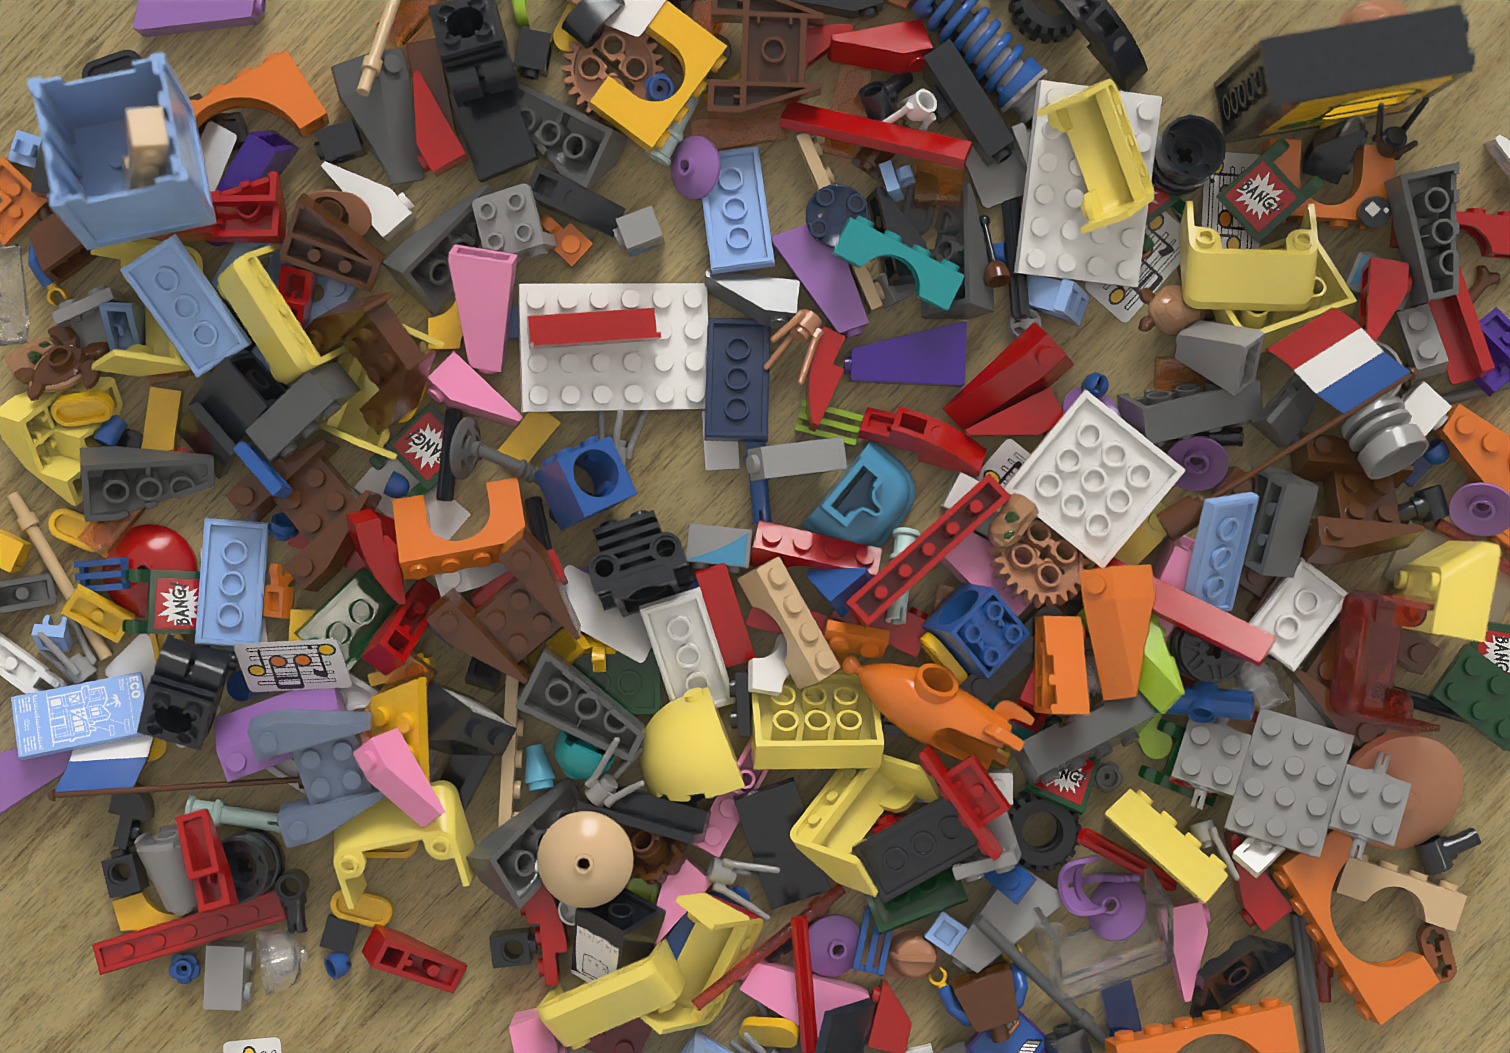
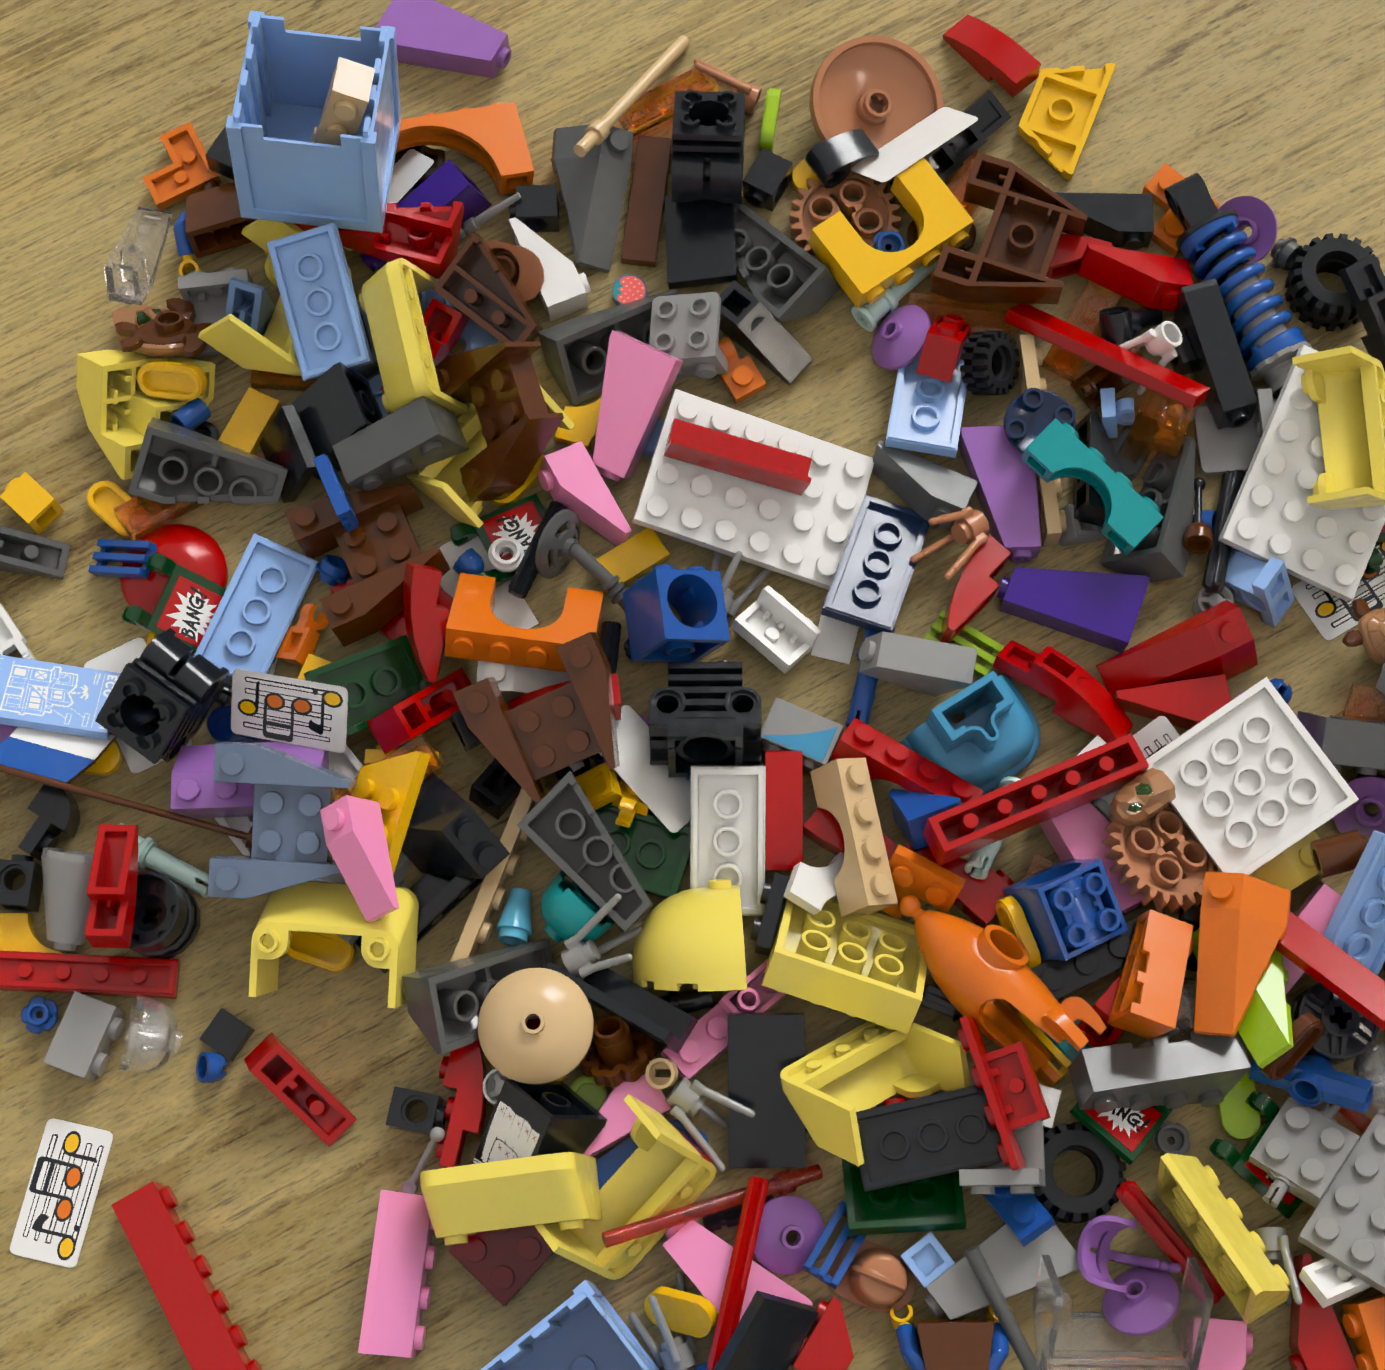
camera: 20 degrees right, 15 degrees down
(24, 149) = (211, 123): light blue tile -> none
(29, 522) = (69, 486): tan bar -> none
(57, 634) = (44, 607): light blue tile -> none
(76, 668) = (57, 647): light grey plant -> none
(96, 613) = (100, 595): yellow plate -> none
(289, 174) = (473, 224): none -> light grey piece
(294, 901) = (191, 977): black pin -> none
(369, 909) = (263, 1013): yellow tile -> none
(423, 458) = (501, 545): none -> white plate
(434, 134) = (637, 224): red slope -> none
(447, 193) = (628, 289): none -> coral tile
(528, 1001) = (410, 1185): none -> light grey hinge
(639, 232) = (820, 380): light grey brick -> none
(671, 462) = (777, 629): none -> white bracket
(698, 867) = (665, 1081): none -> tan hinge
(735, 169) = (943, 347): none -> red slope
(778, 169) = (989, 363): none -> black tyre
(1189, 676) = (1306, 1032): none -> reddish brown tile

